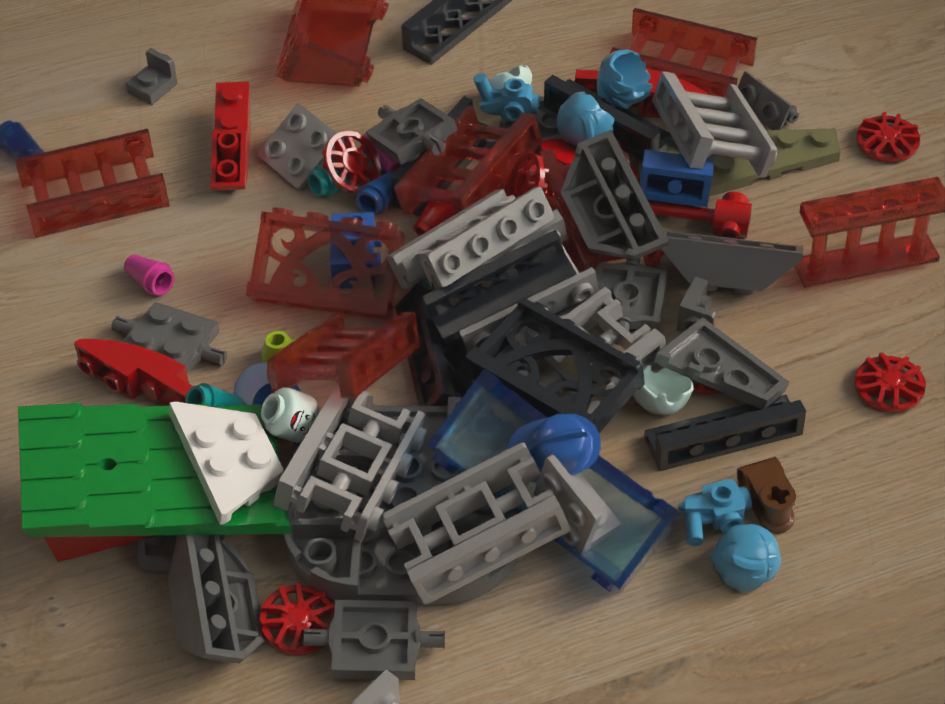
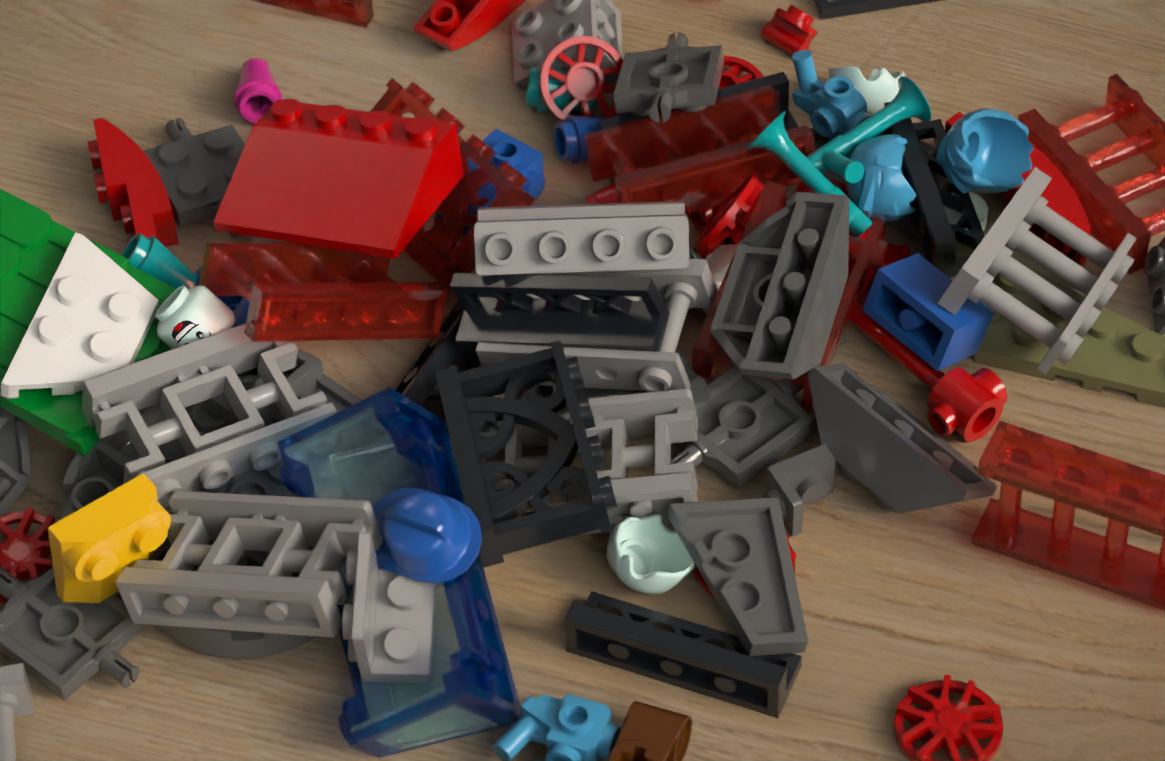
camera: 40 degrees right, 0 degrees up
(289, 285) = (340, 178): none -> red slope
(382, 563) = (104, 538): none -> yellow slope
(427, 77) = (790, 30): none -> red plate
(522, 126) = (777, 141): none -> teal piece
(564, 70) = (906, 104): none -> teal piece

